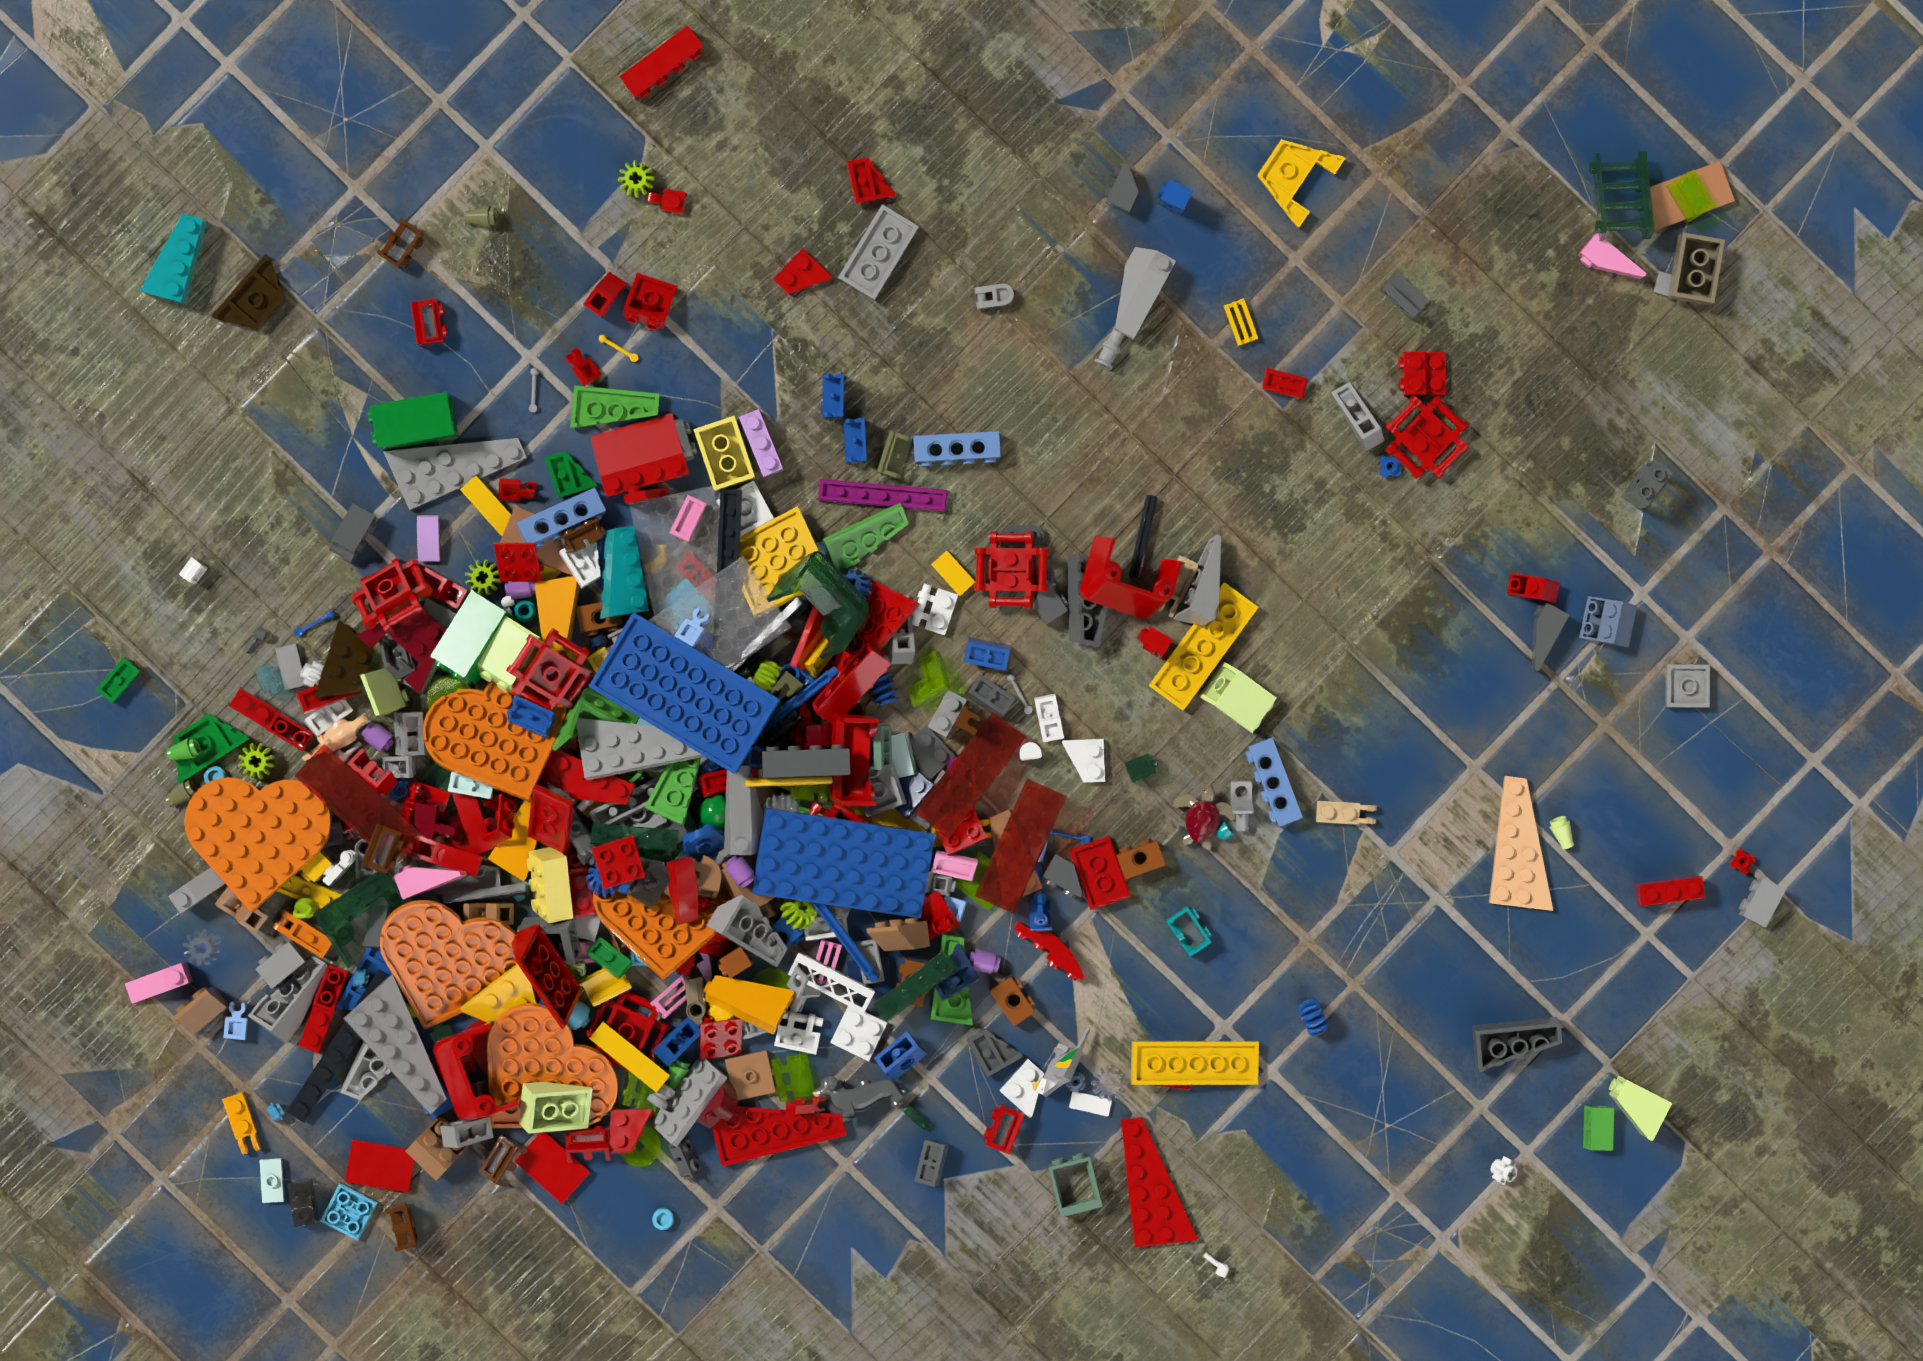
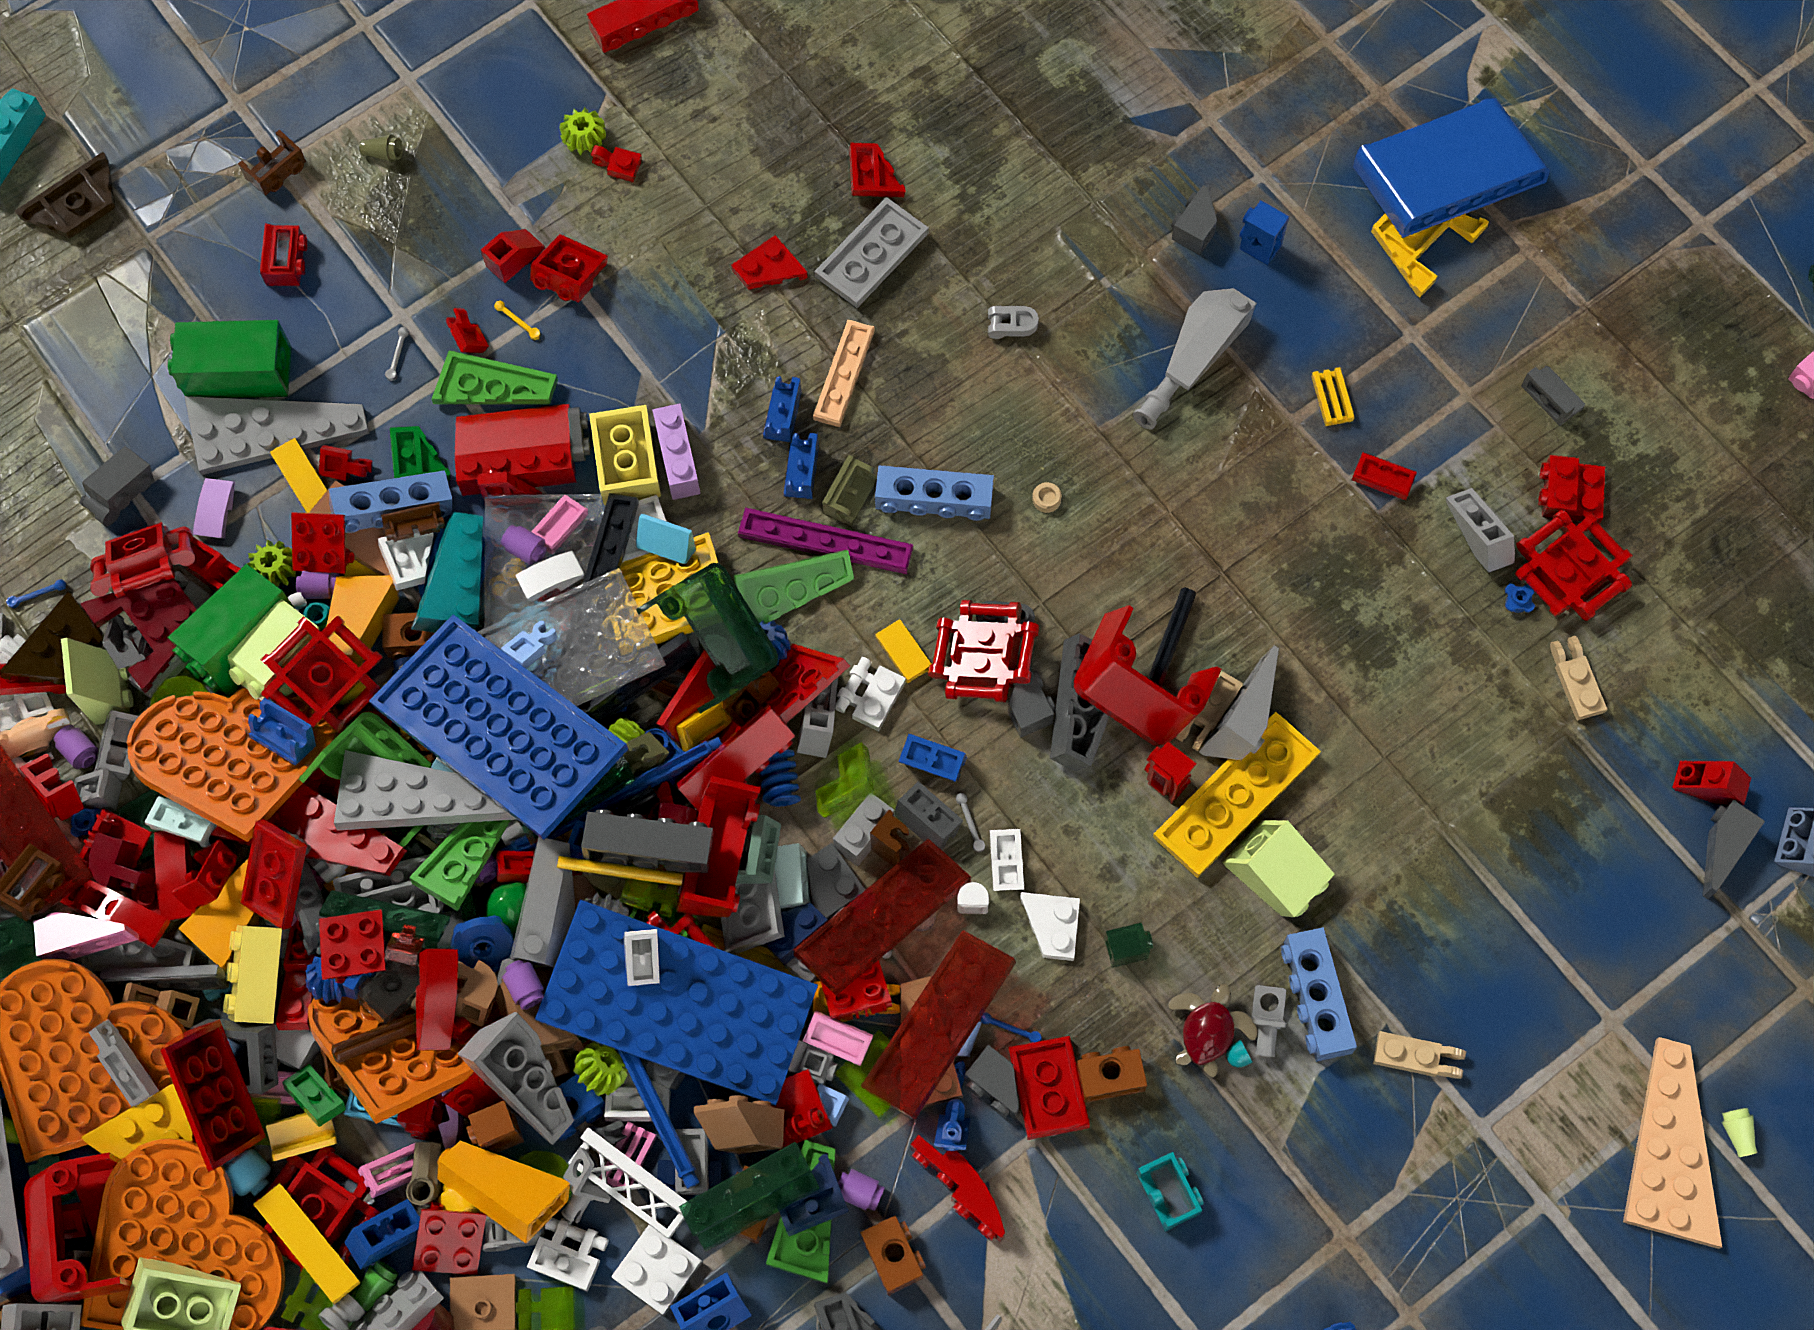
camera: 10 degrees right, 20 degrees down
(479, 962) = (122, 1064): none -> light grey hinge
(646, 920) = (374, 1038): none -> reddish brown axle
(654, 859) = (404, 946): none -> clear red tile
(668, 543) = (524, 544): none -> medium lavender brick
(692, 563) = (549, 574): none -> white slope
(768, 521) = (665, 539): none -> medium azure slope
(813, 950) = (611, 1132): none -> dark grey hand
(816, 842) = (641, 957): none -> white slope
(873, 356) = (843, 373): none -> light nougat tile
(1039, 436) = (1046, 497): none -> tan tile
(1312, 115) = (1449, 167): none -> blue windscreen
(1436, 523) = (1578, 680): none -> tan hinge

